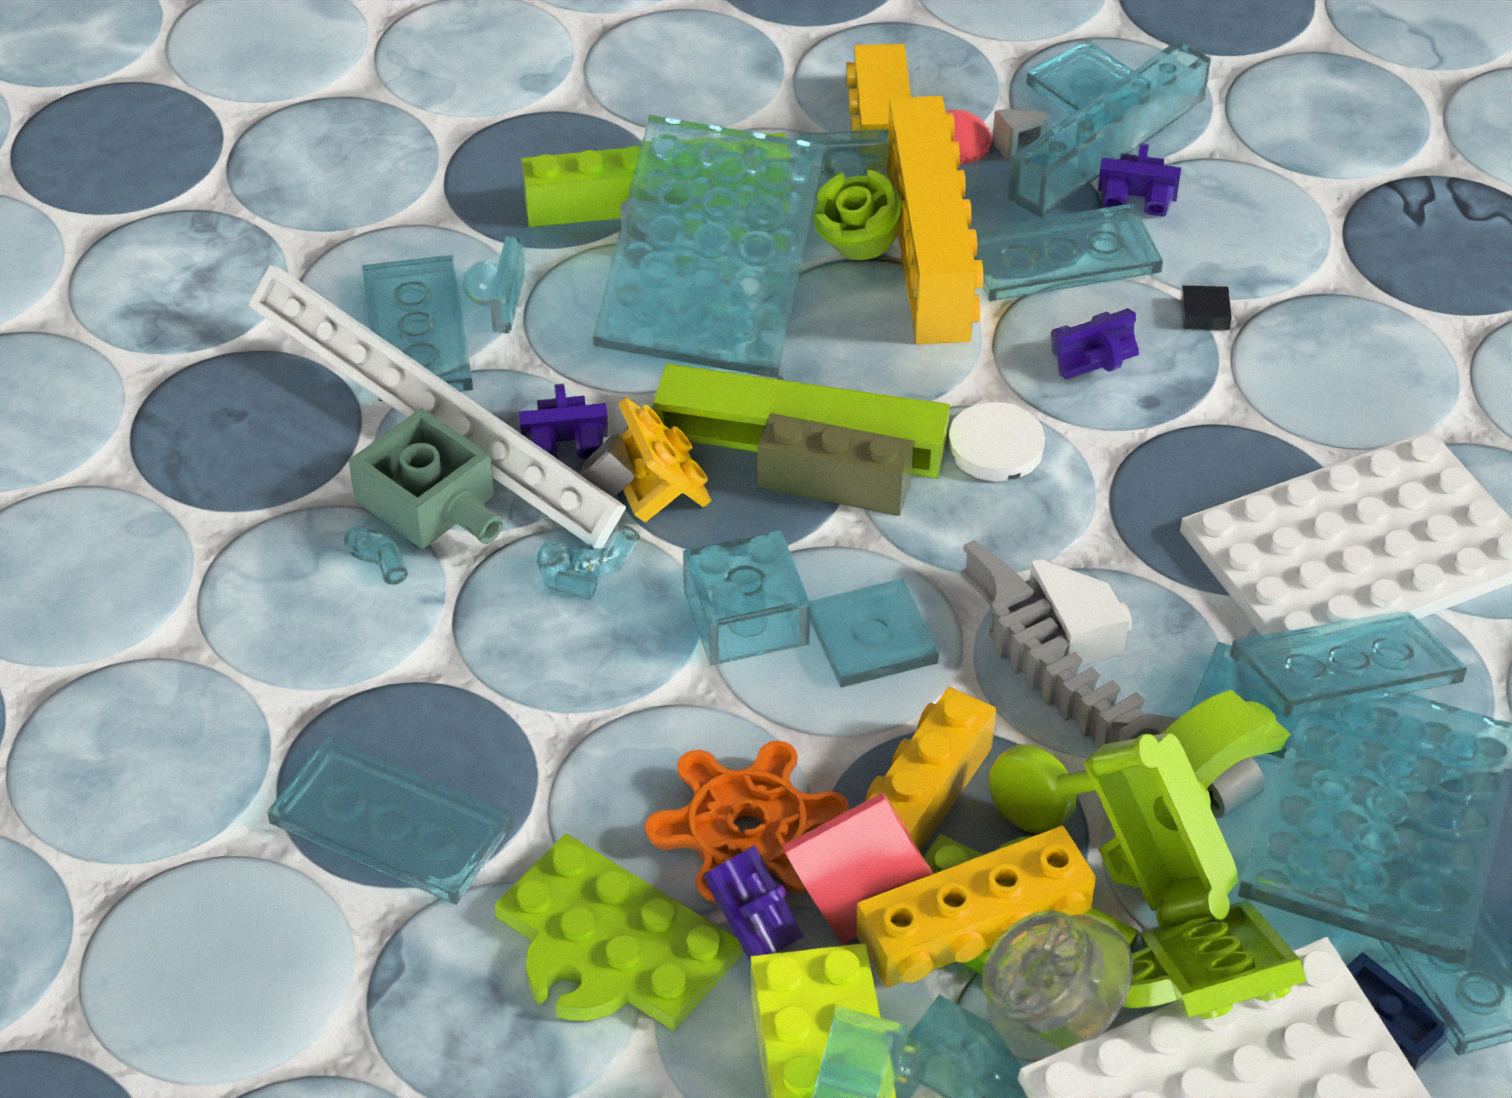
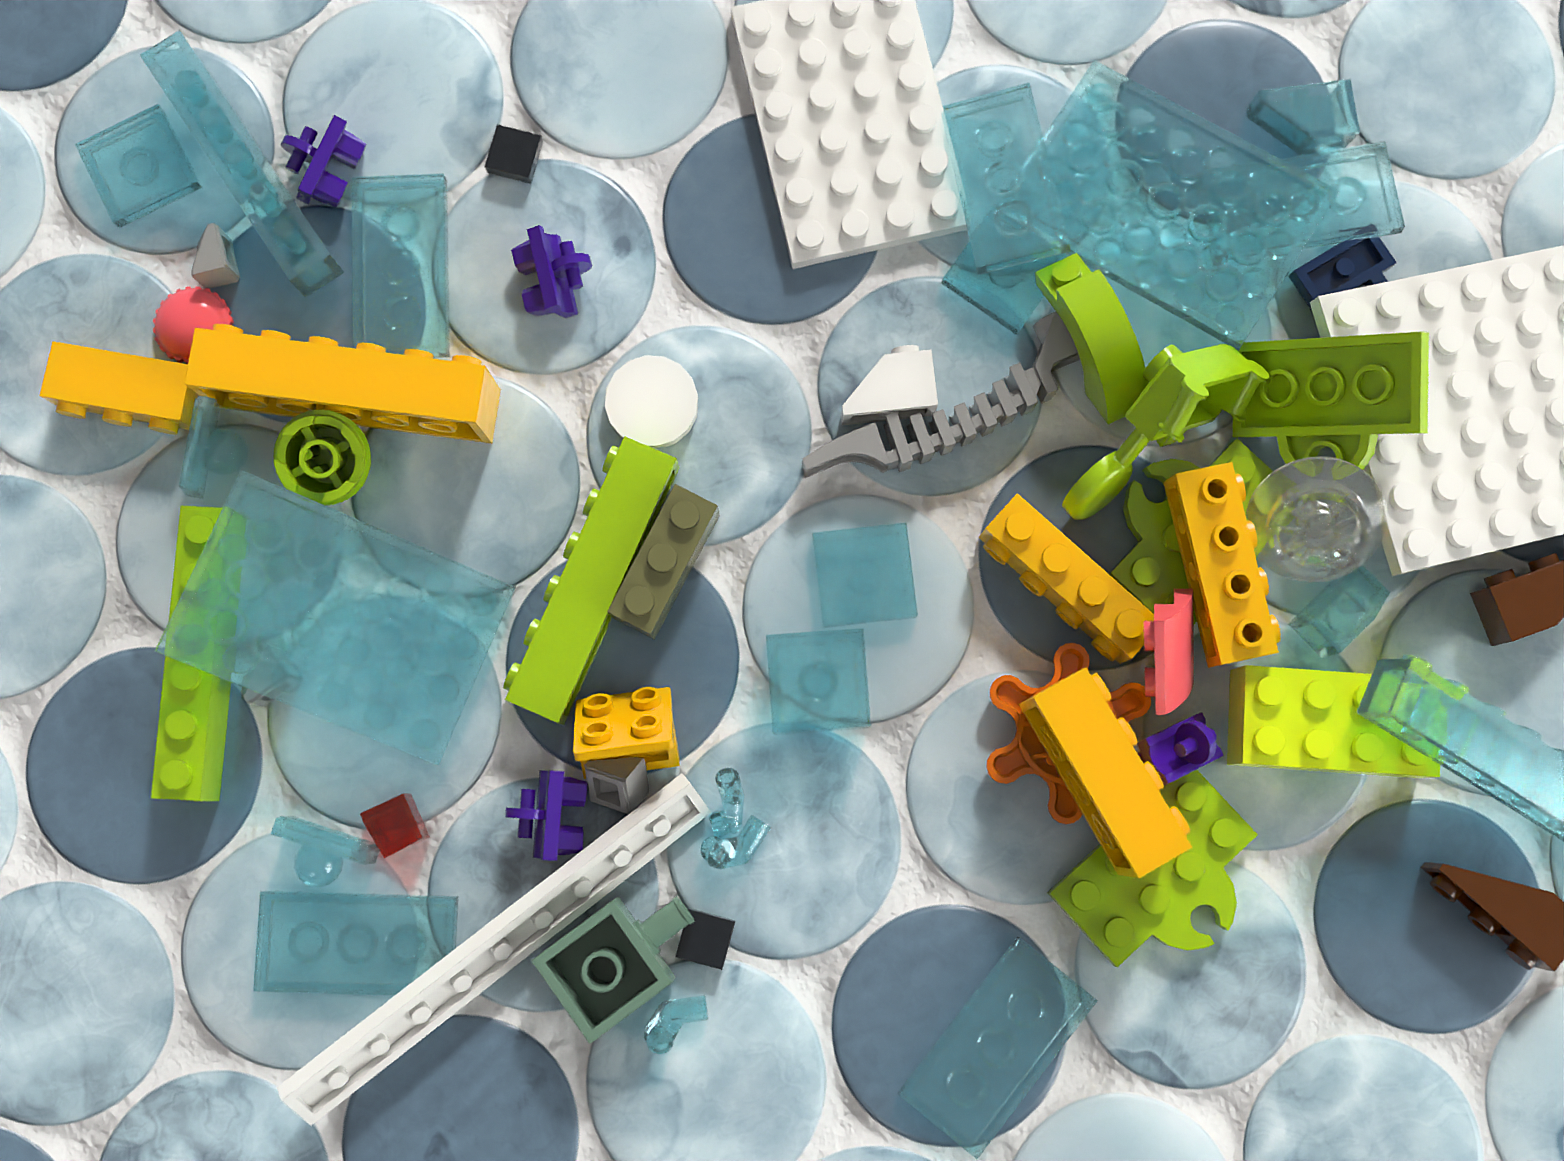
camera: 80 degrees left, 35 degrees up
(464, 565) = (706, 939): none -> black tile
(533, 329) = (395, 824): none -> clear red slope
(704, 809) = (1106, 774): none -> yellow brick

